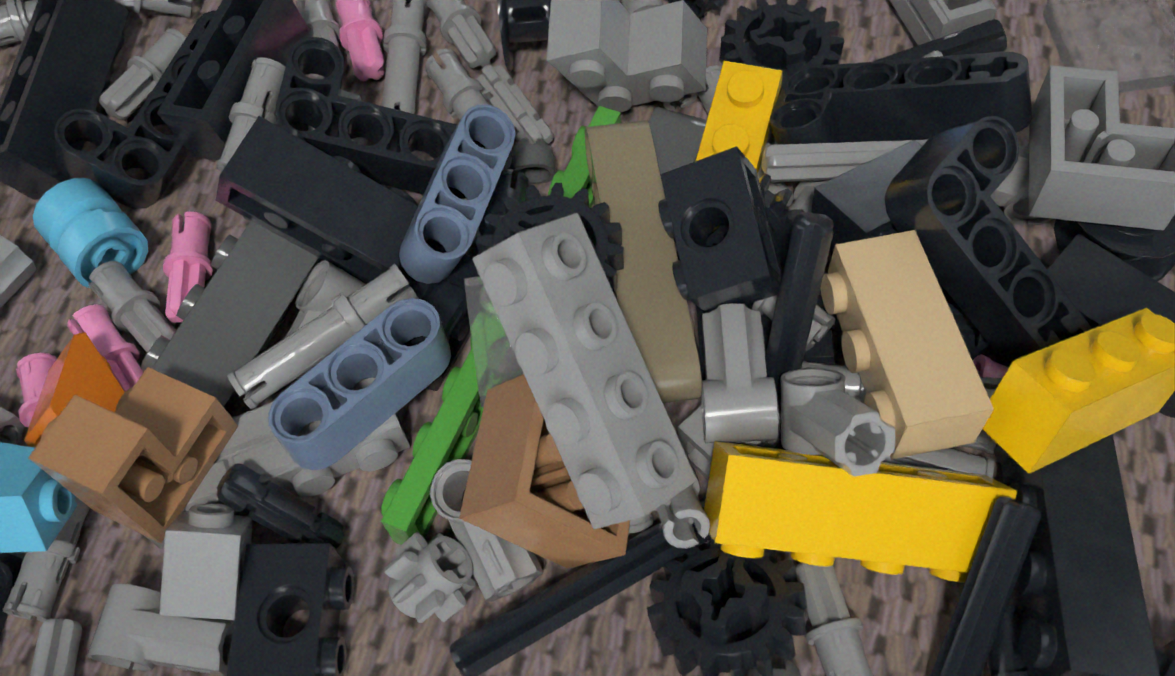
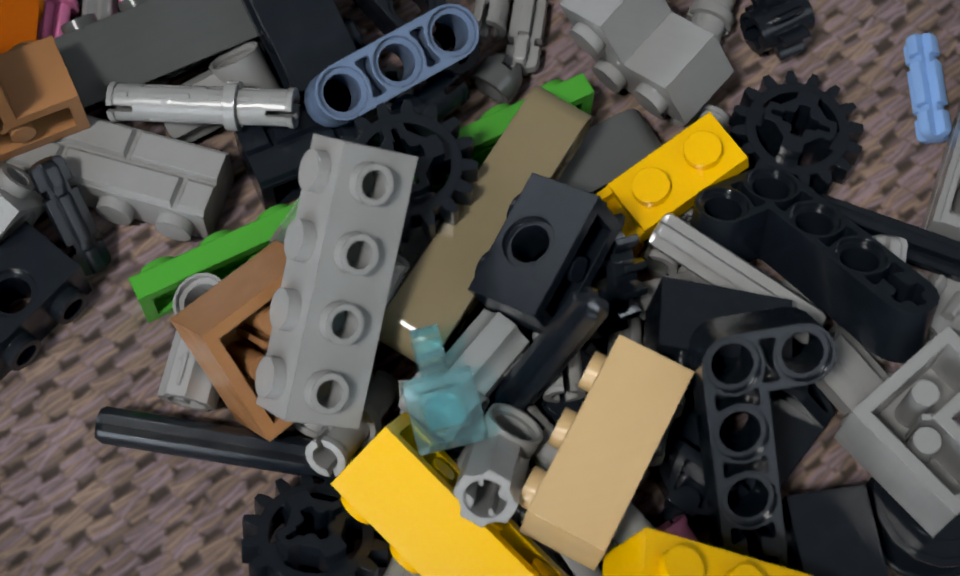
camera: 30 degrees right, 5 degrees up
(352, 415) = (168, 148): sand blue beam -> none
(430, 577) = (132, 347): light grey gear -> none
(753, 400) = (442, 401): none -> clear light blue plate

